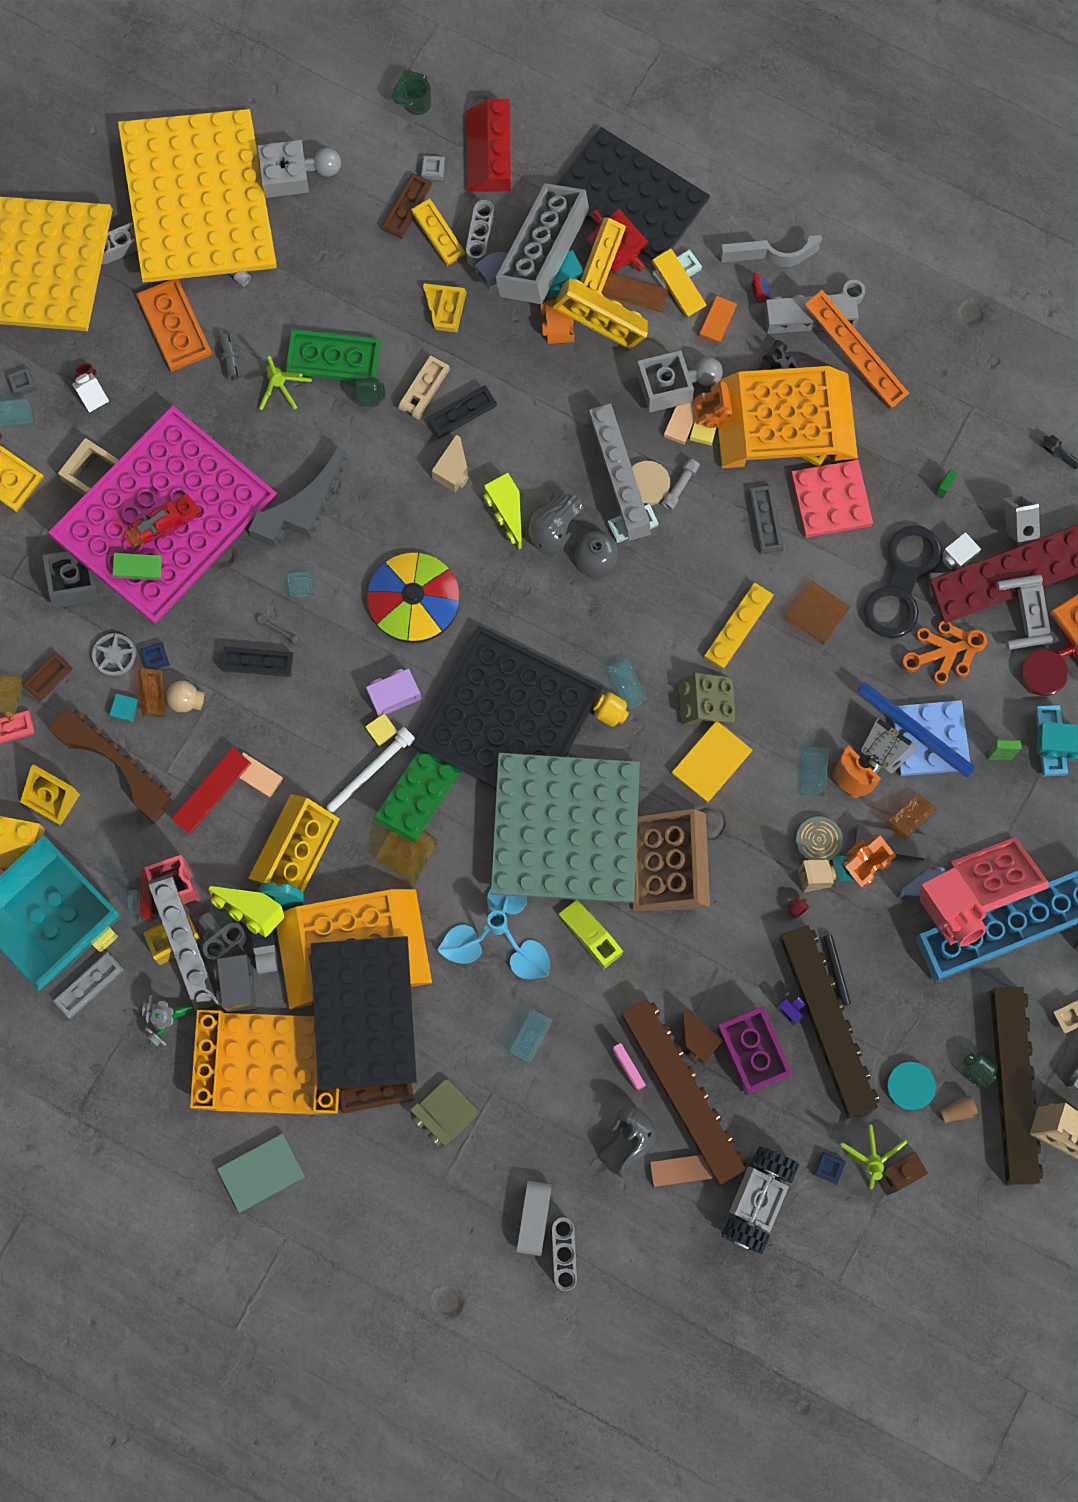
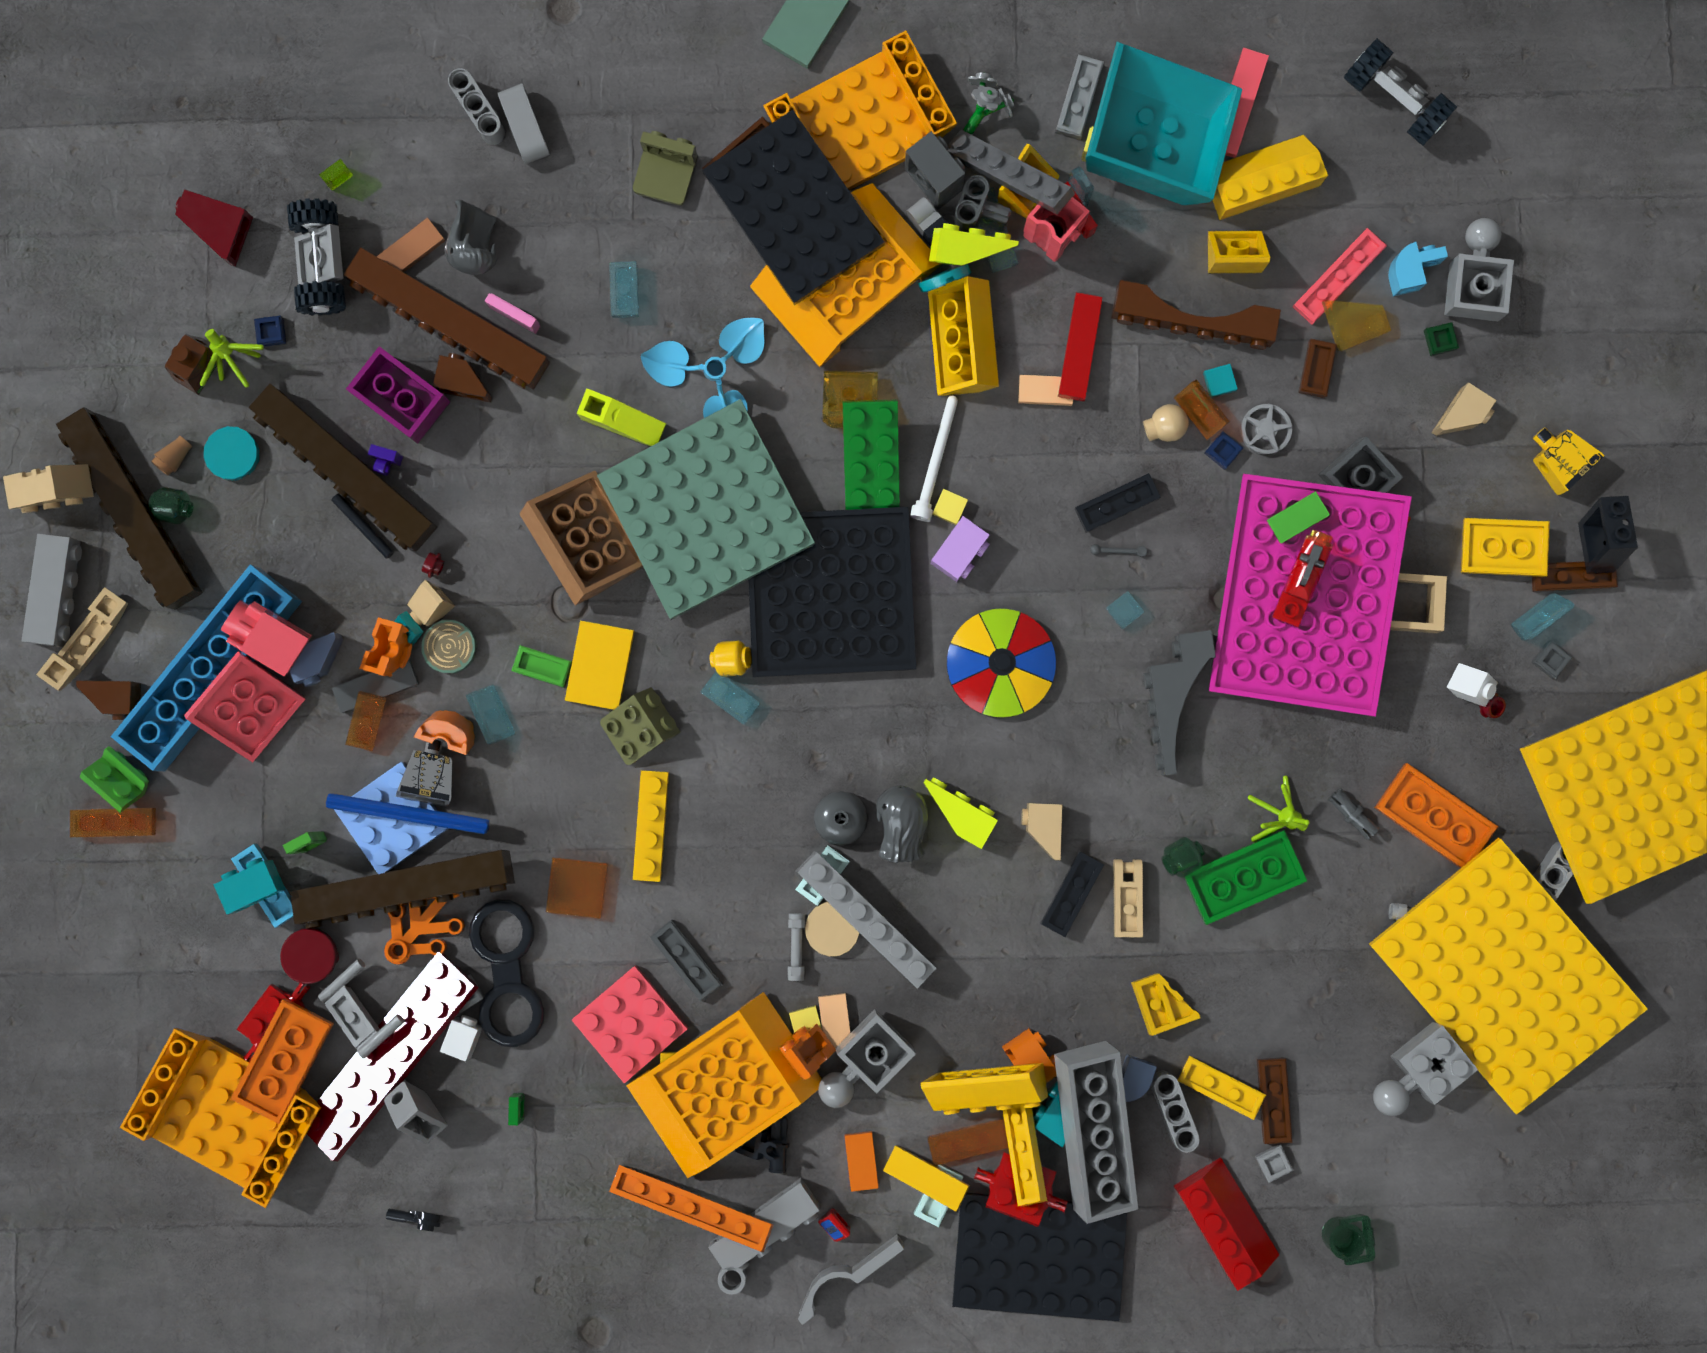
camera: 160 degrees right, 10 degrees up
(708, 1263) = (336, 174): none -> clear neon green tile
(756, 786) = (542, 666): none -> bright green tile
(829, 1281) = (216, 223): none -> dark red slope
(947, 677) = (402, 887): none -> dark brown brick

